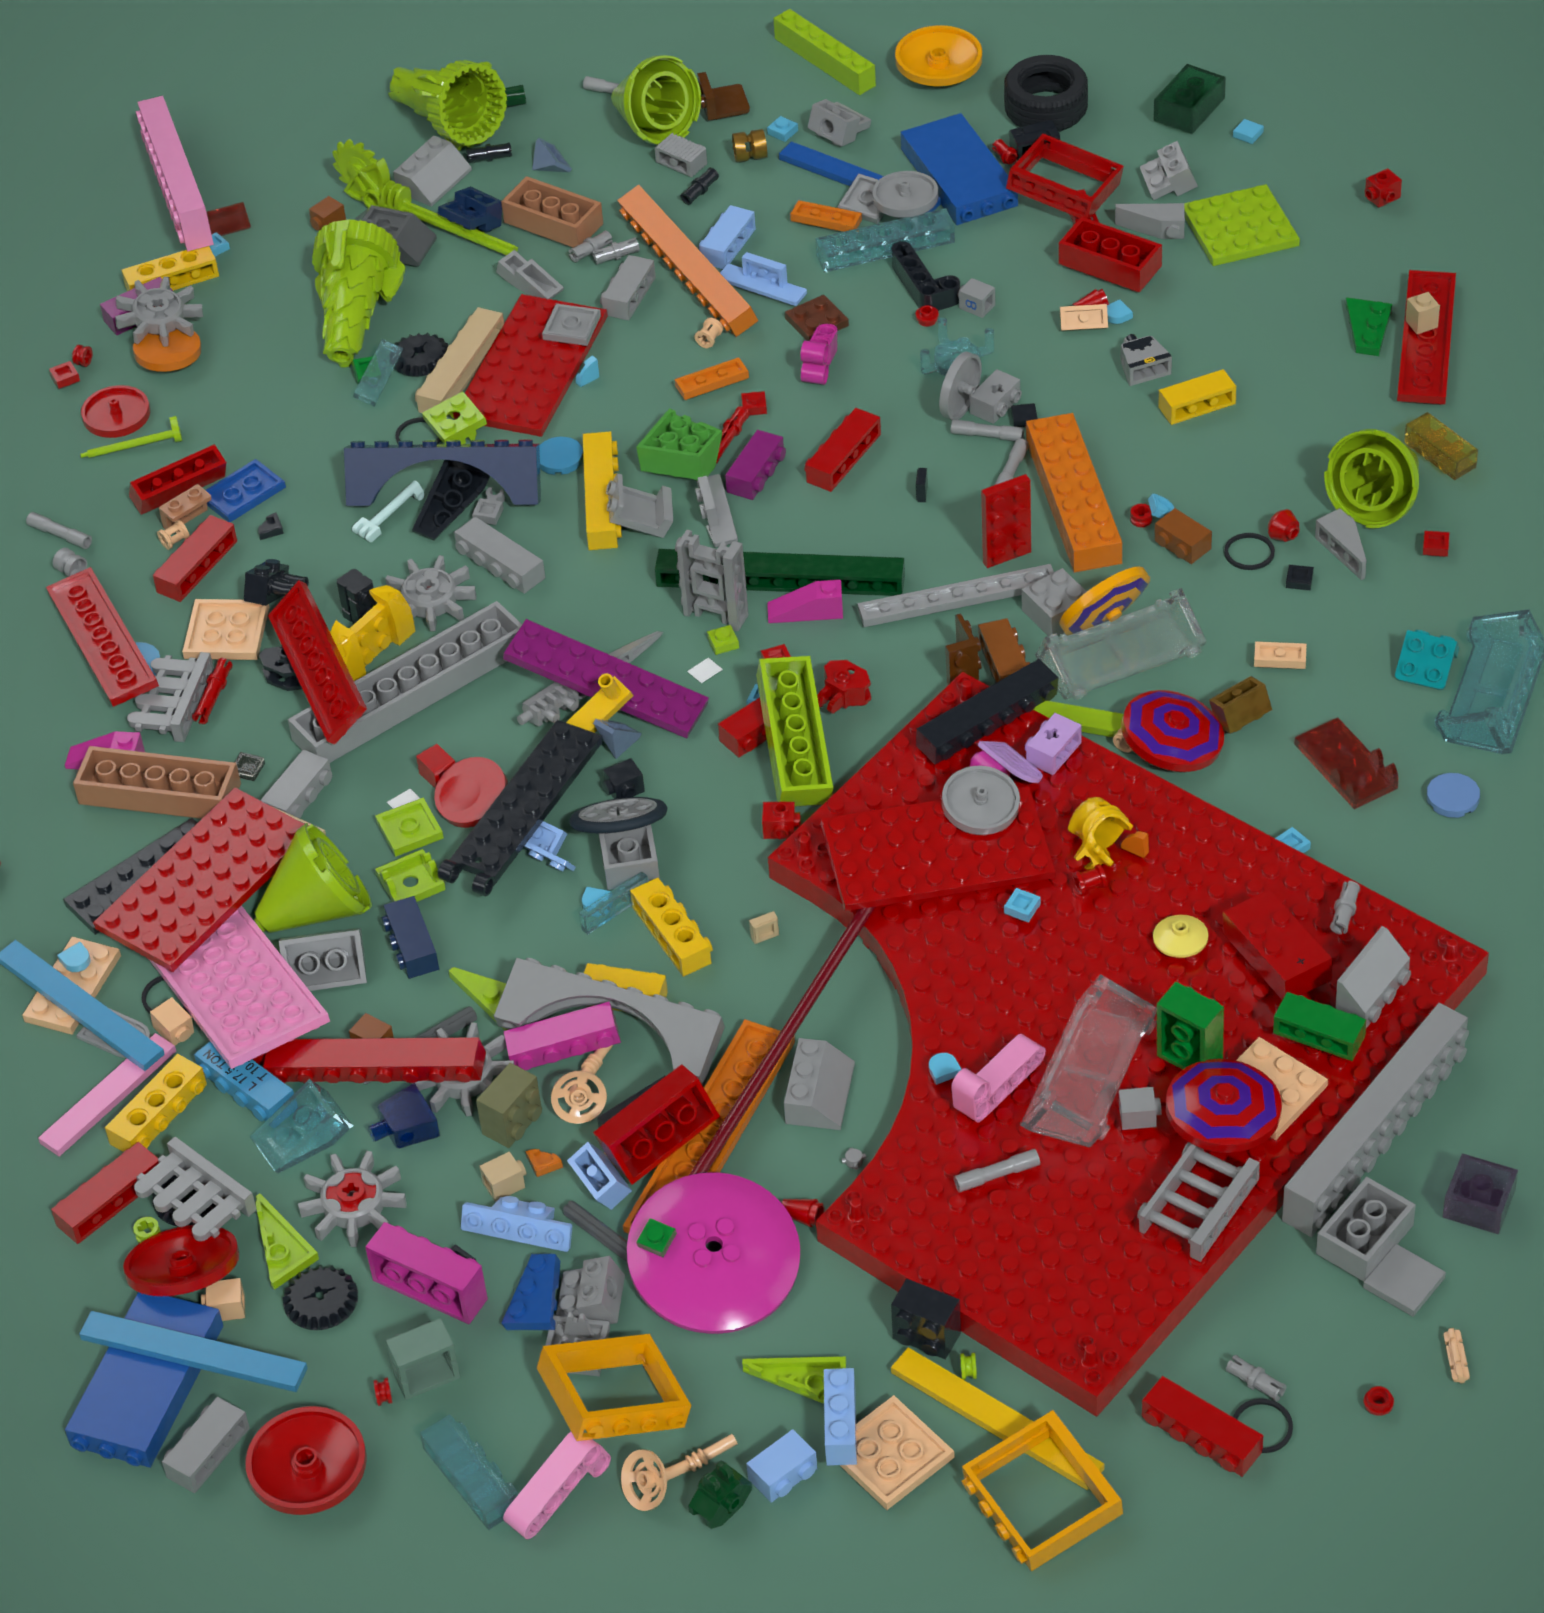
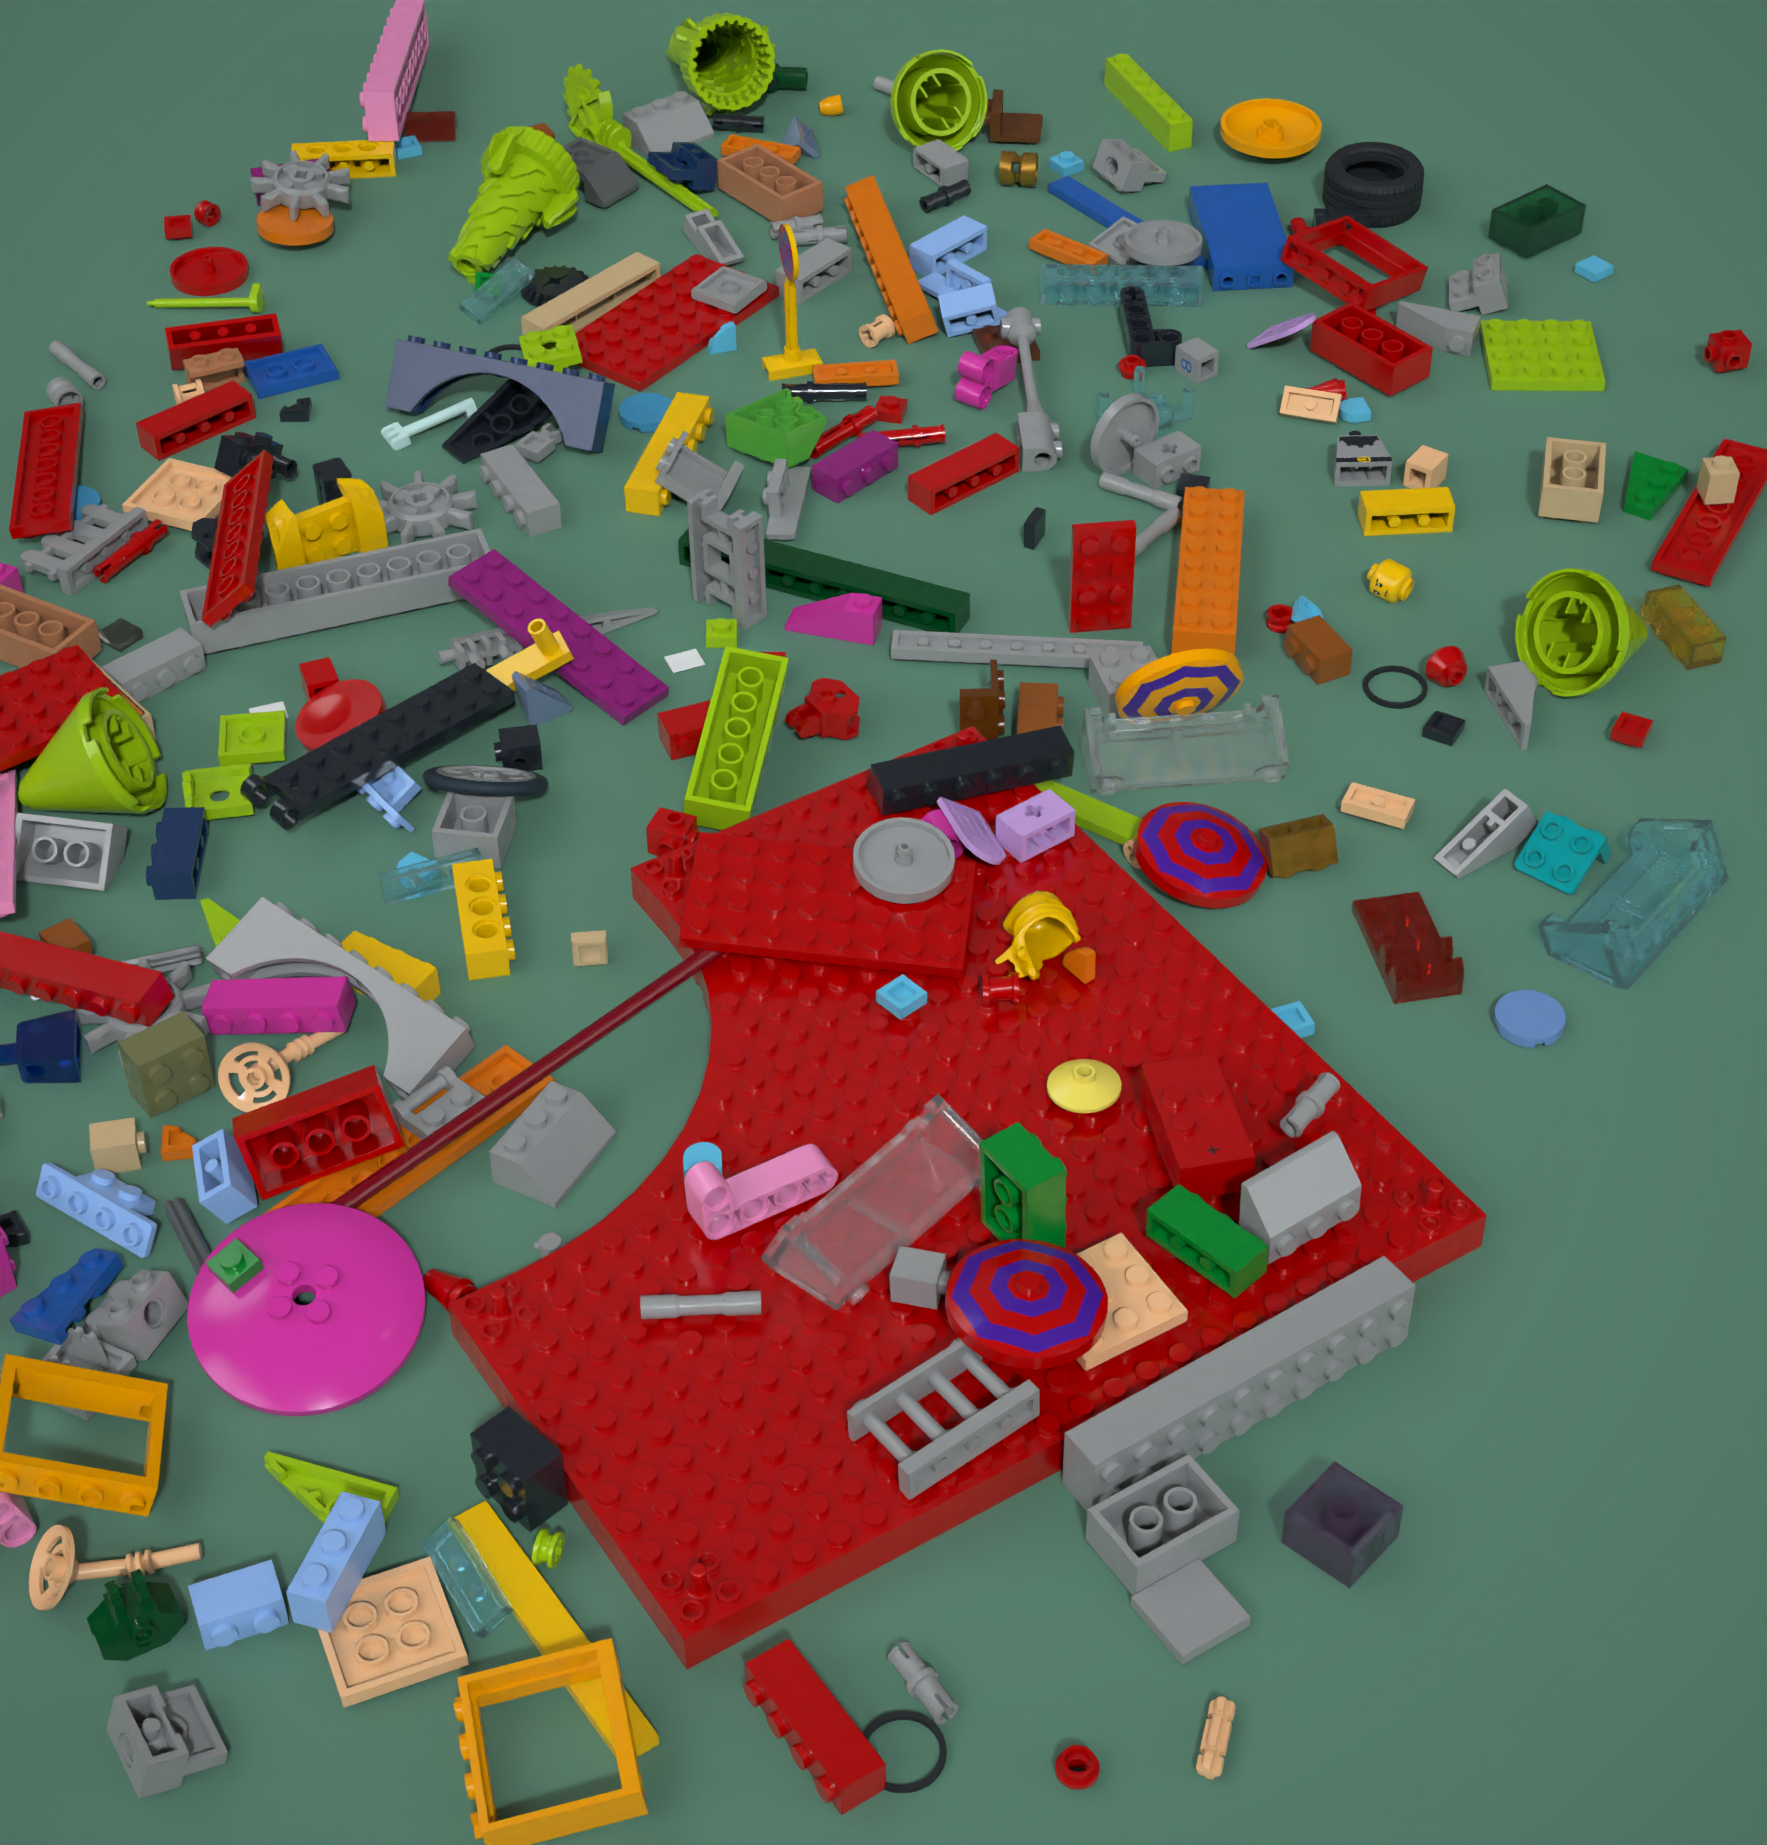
camera: 15 degrees right, 5 degrees down
(511, 176) = (736, 143): none -> orange plate
(558, 116) = (831, 106): none -> light orange hose
(656, 377) = (793, 361): none -> yellow piece
(685, 403) = (831, 391): none -> black pin
(732, 1081) = (451, 1104): none -> light grey plate
(777, 295) = (969, 309): none -> light blue brick
(782, 426) = (915, 435): none -> red pin
(783, 1565) = (163, 1737): none -> light grey brick
(879, 394) = (1034, 427): none -> light grey bar
(924, 1401) = (467, 1577): none -> clear light blue tile
(1034, 253) = (1282, 330): none -> lavender window
(1196, 355) = (1425, 468): none -> light nougat brick
(1211, 462) = (1390, 581): none -> yellow head
(1312, 337) = (1572, 480): none -> tan brick
(1369, 659) = (1488, 836): none -> light grey slope

